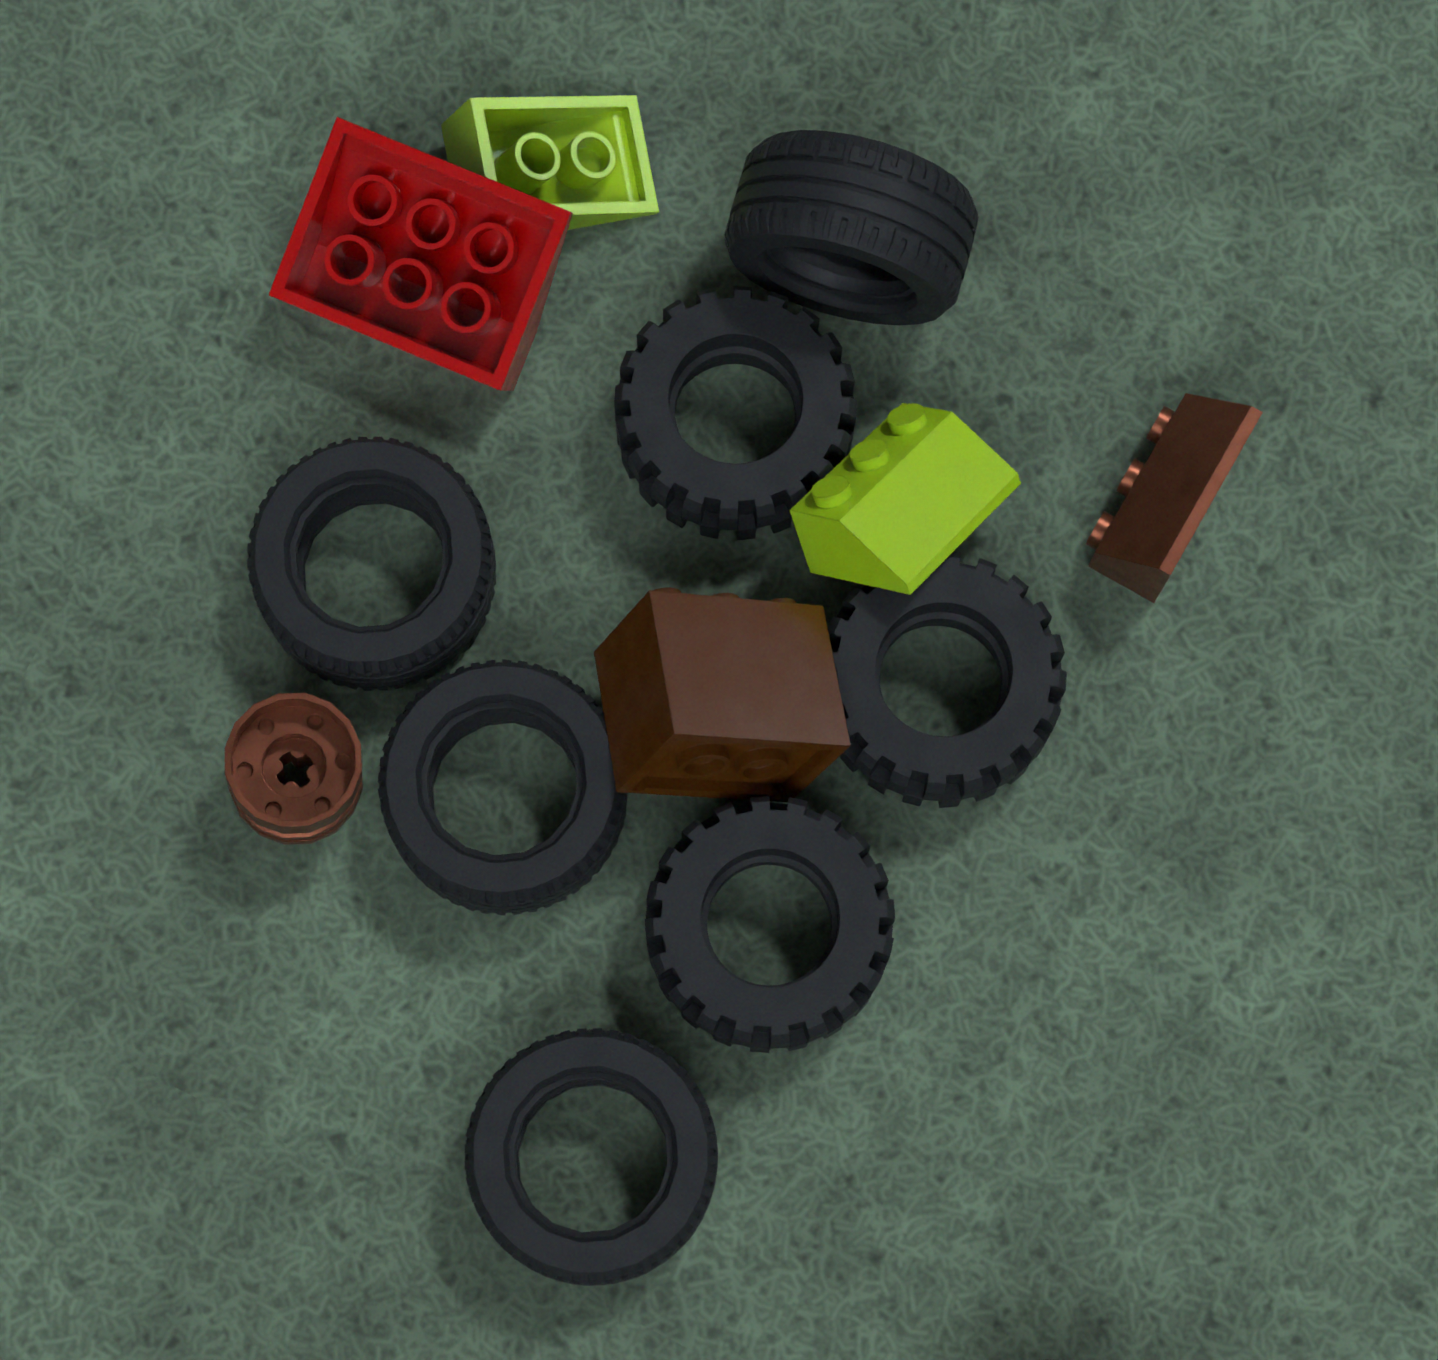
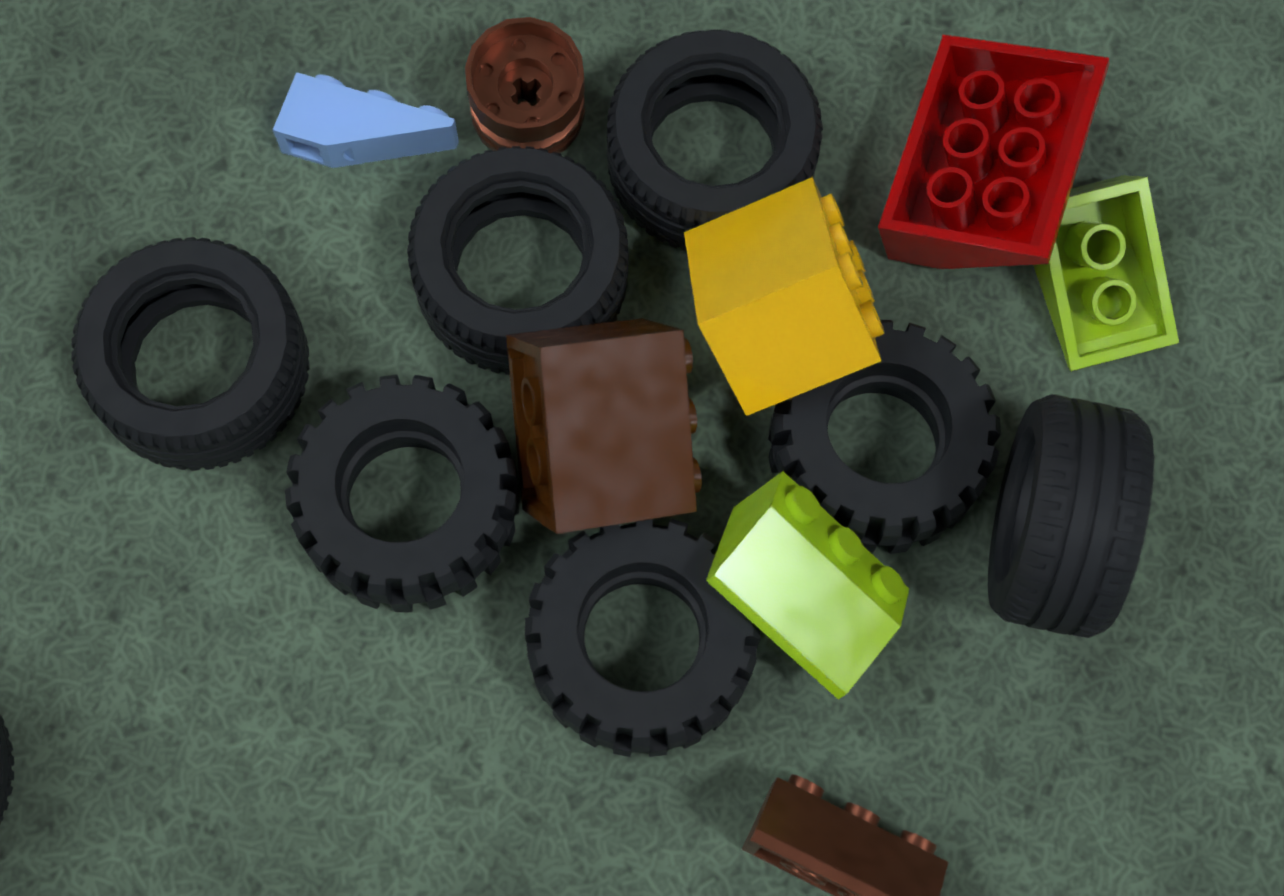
camera: 85 degrees right, 5 degrees down
(310, 987) = (353, 127): none -> light blue slope
(590, 493) = (782, 296): none -> yellow container

